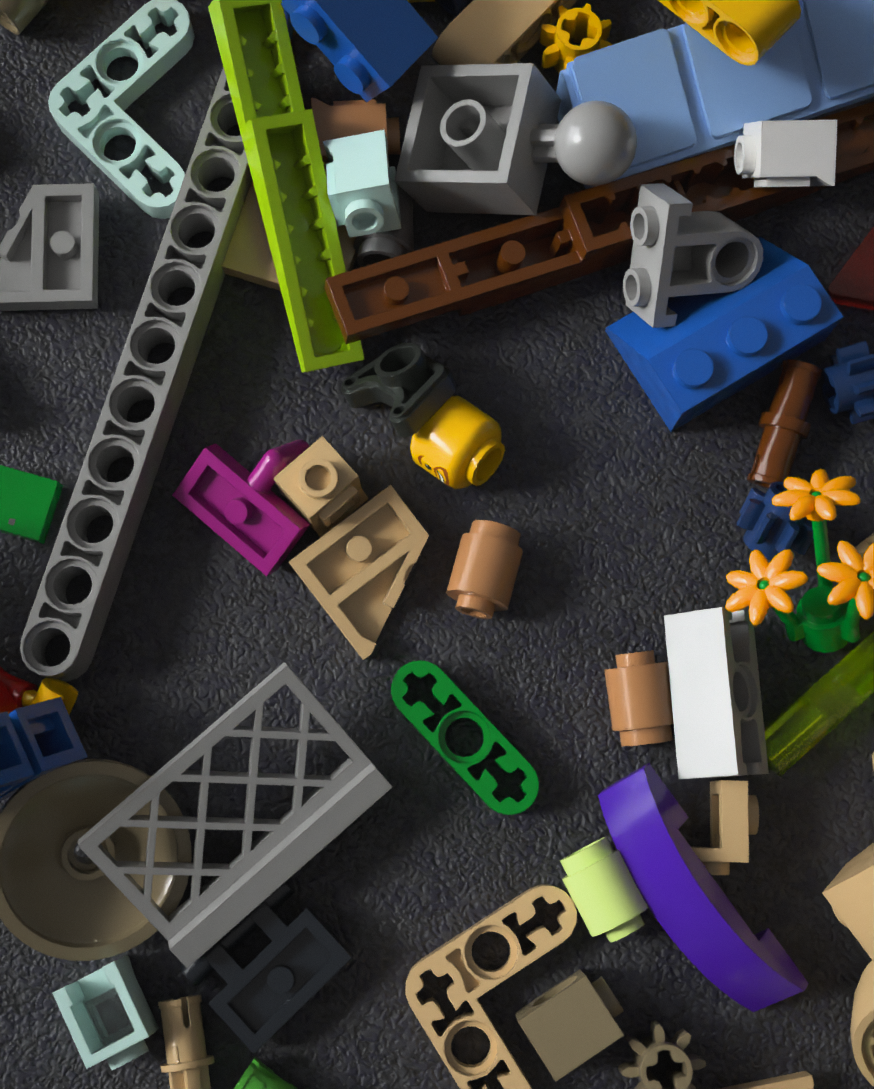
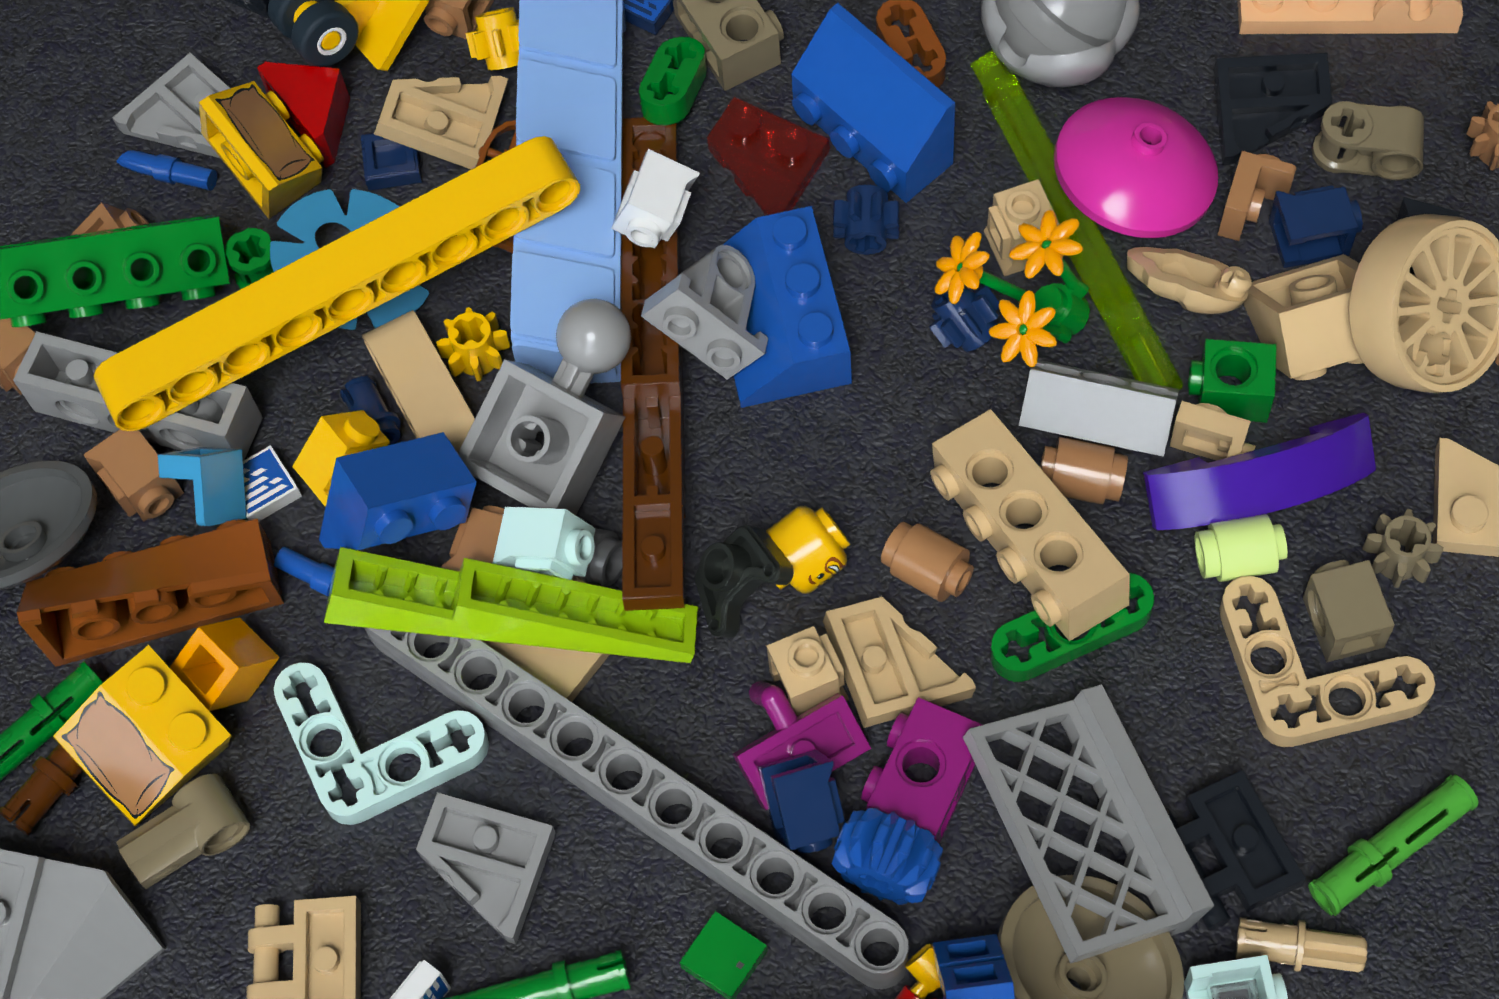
camera: 65 degrees left, 15 degrees down
(146, 626) = (887, 856): none -> blue gear
(180, 525) = (802, 801): none -> dark blue window
(213, 624) = (927, 737): none -> magenta brick
(622, 588) = (988, 453): none -> tan brick
(785, 422) = (881, 287): reddish brown pin -> none
(827, 847) = (1247, 361): none -> green brick

